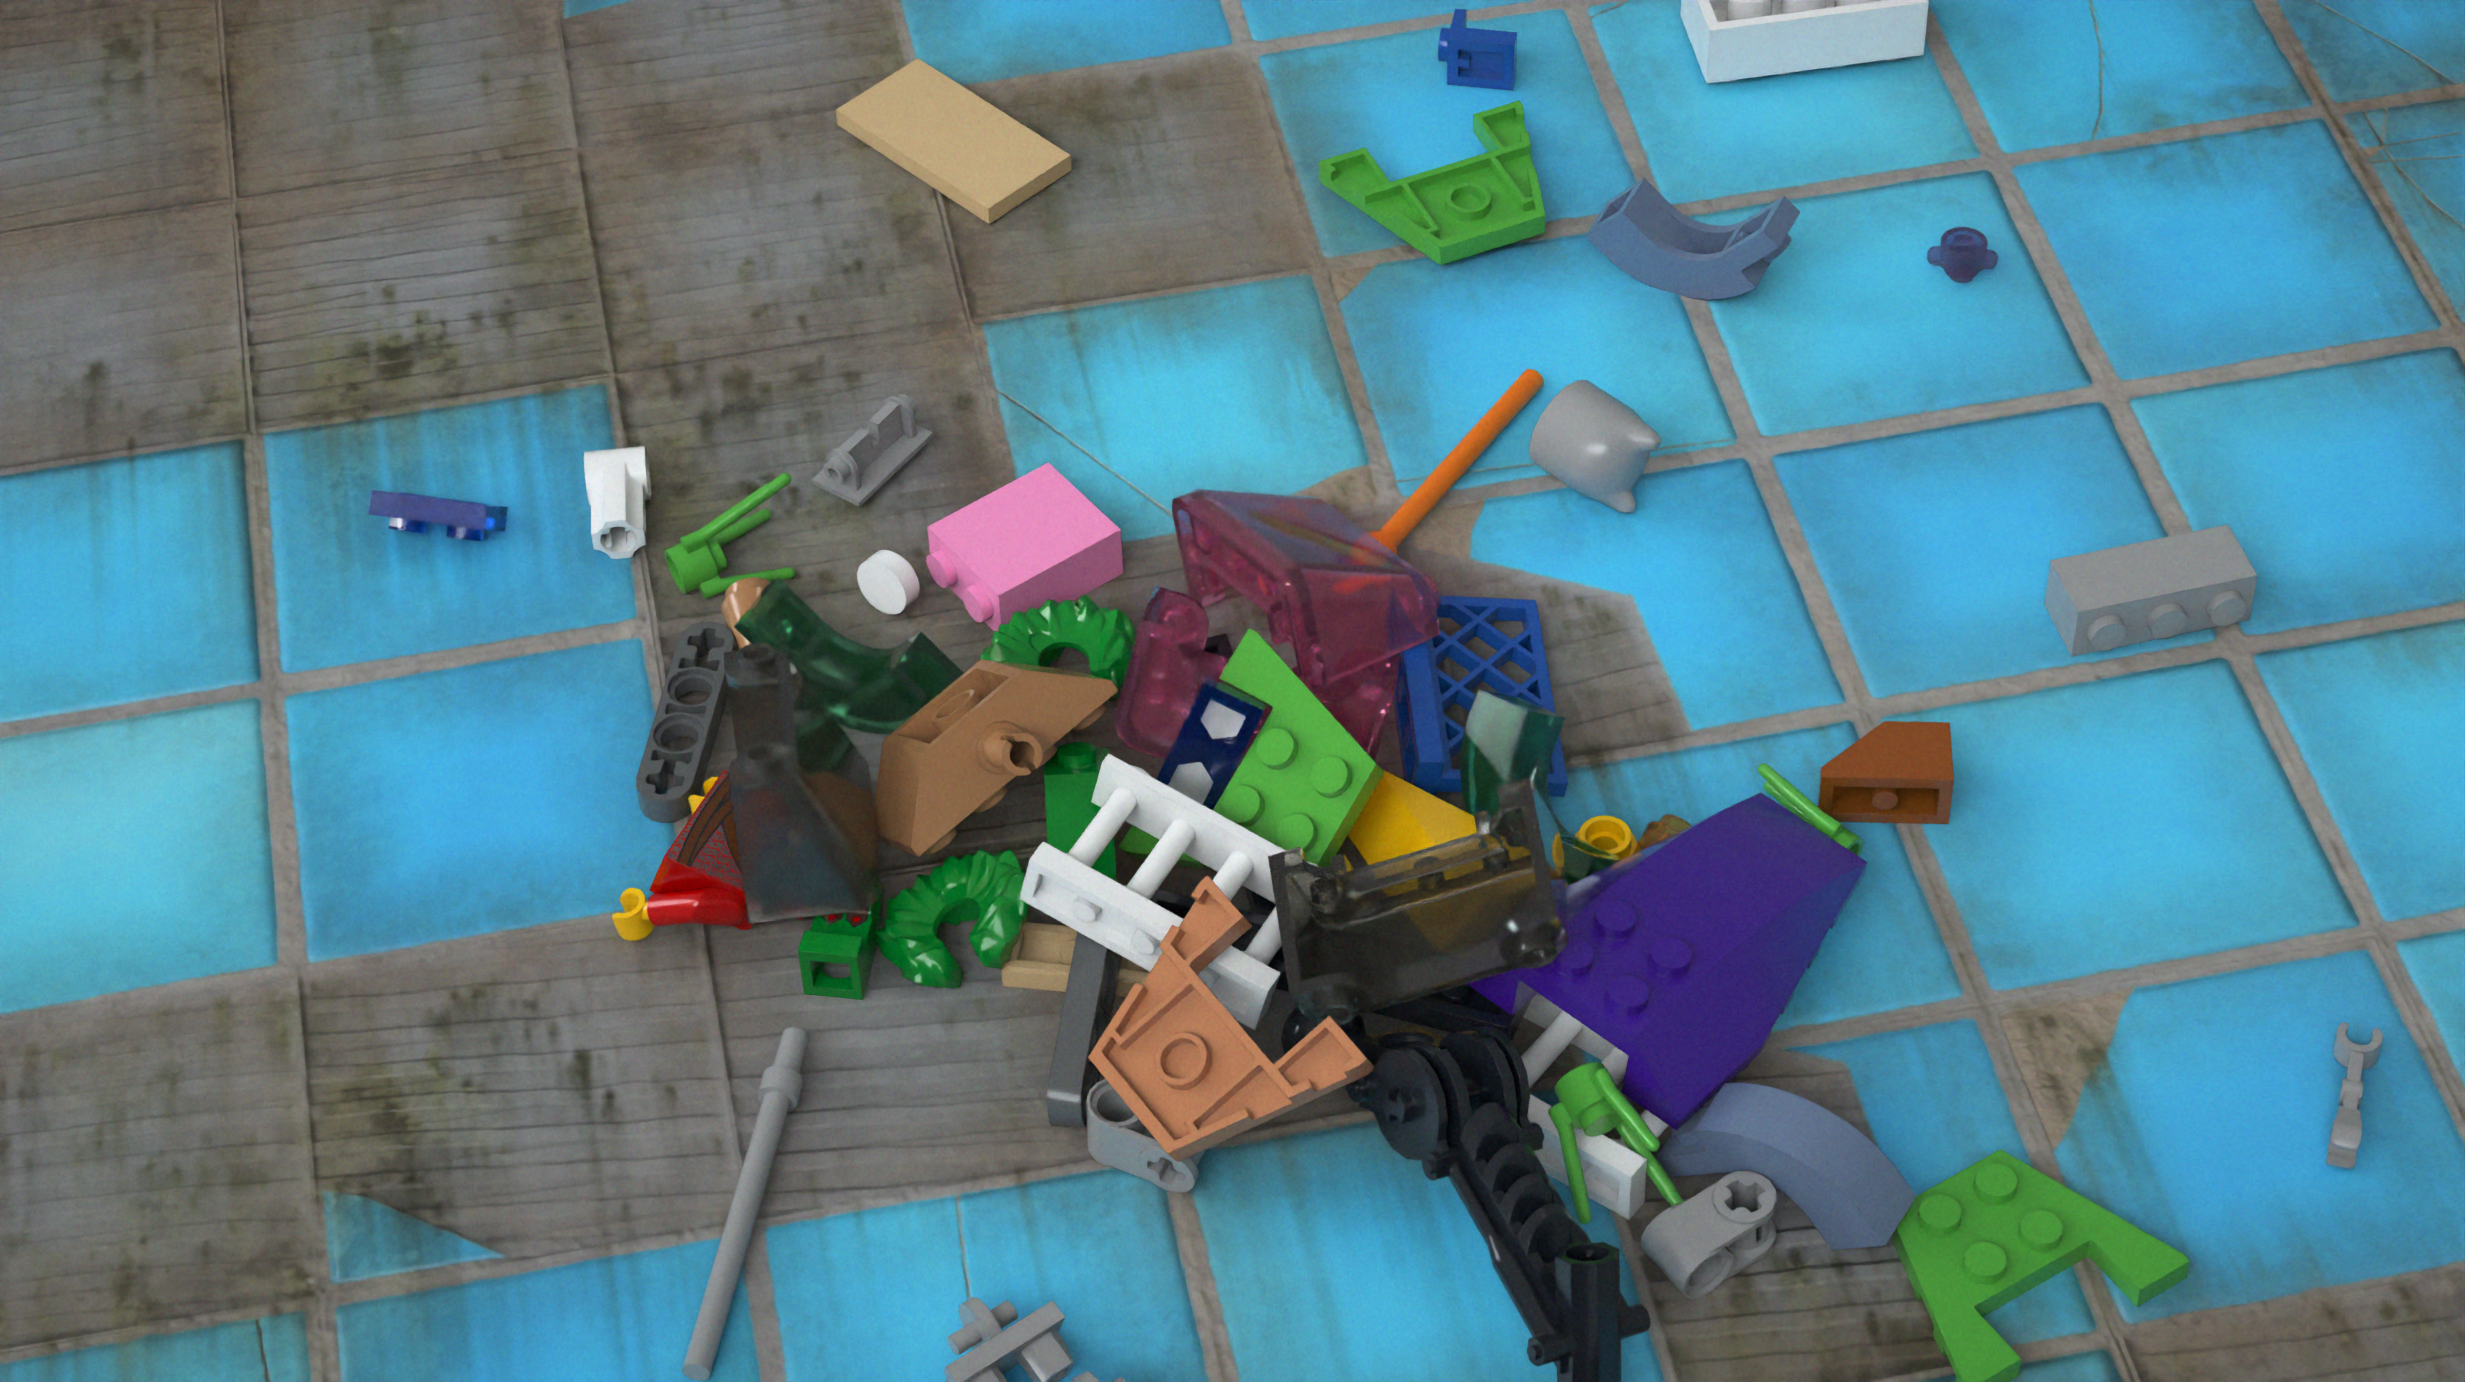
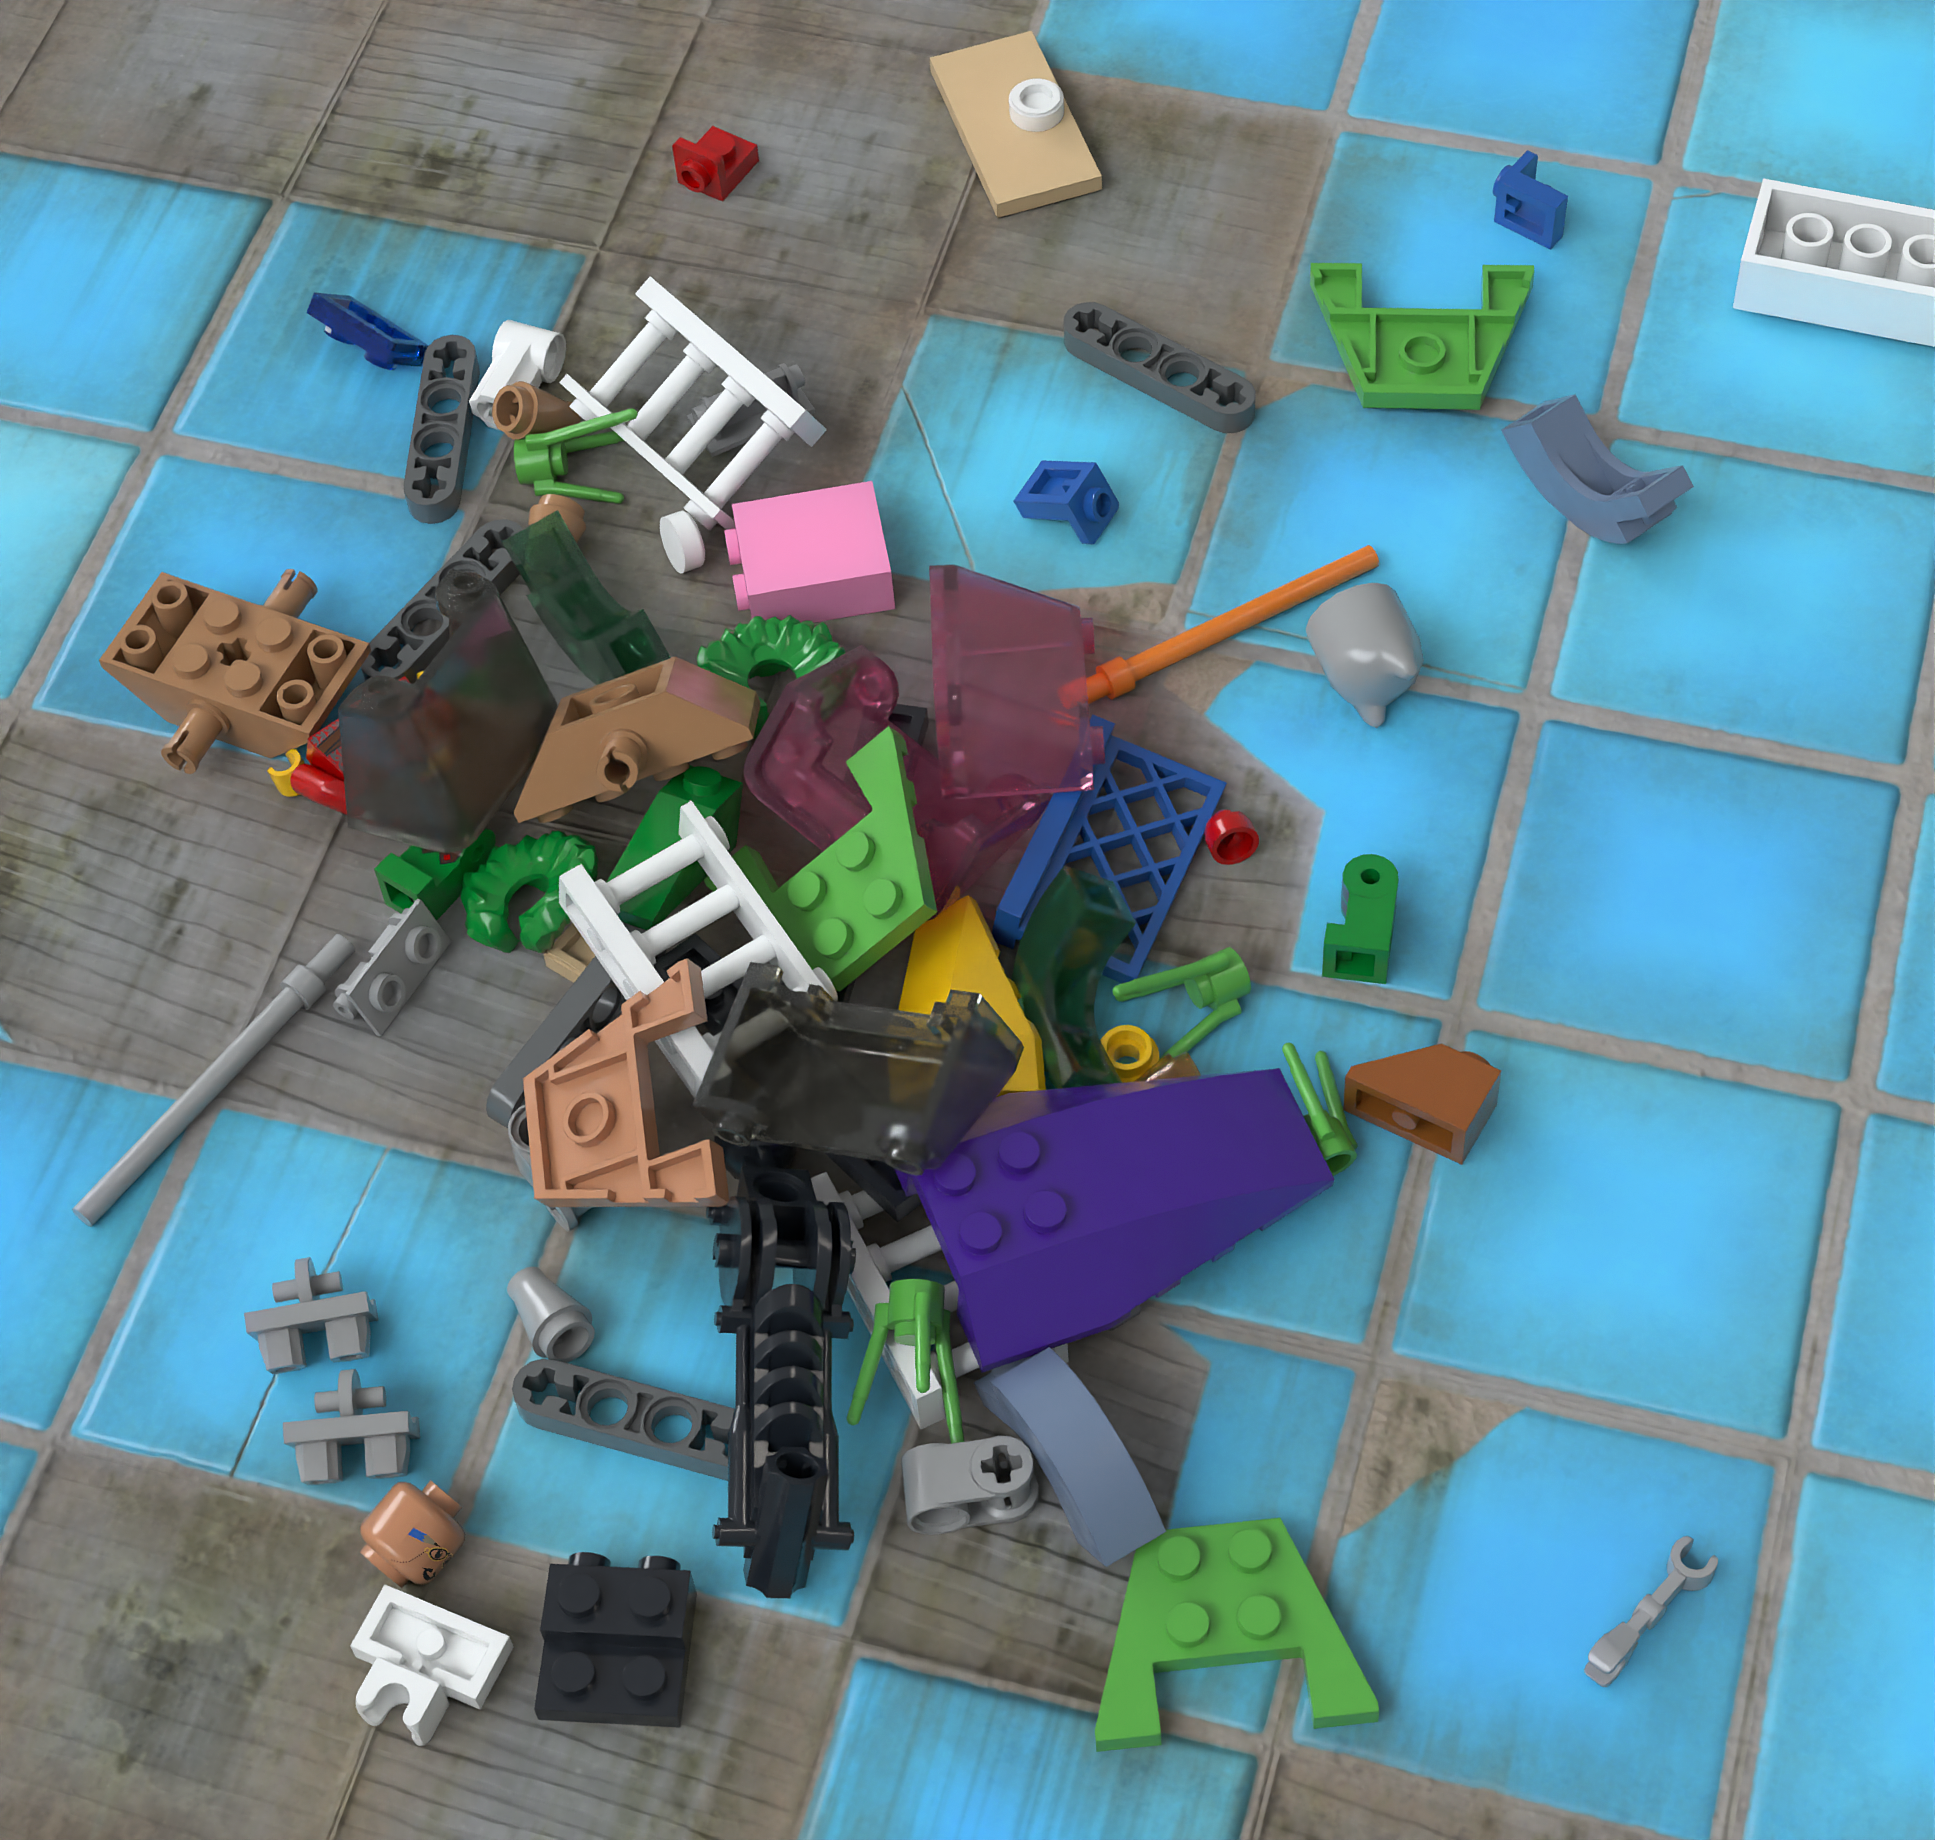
camera: 30 degrees right, 10 degrees up
(523, 839) = (232, 666): none -> medium nougat slope
(575, 570) = (441, 428): none -> dark grey beam
(662, 519) = (528, 410): none -> medium nougat cone
(683, 262) = (714, 162): none -> red bracket
(820, 402) = (741, 387): none -> white fence
(862, 1017) = (397, 968): none -> light grey hinge
(971, 114) = (1036, 105): none -> white tile
(1150, 281) = (1164, 360): none -> dark grey beam
(1210, 742) = (804, 822): clear blue piece -> none
(1227, 417) = (1069, 493): none -> blue bracket
(1230, 1261) = (552, 1318): none -> light grey cone
(1370, 1303) = (636, 1429): none -> dark grey beam
(1571, 640) = (1230, 837): none -> red hinge
(1637, 761) = (1209, 982): none -> bright green plant
(1743, 659) = (1368, 904): none -> green leg
(1962, 254) = (1858, 580): clear purple plate -> none
(2150, 590) = (1800, 1008): light grey brick -> none

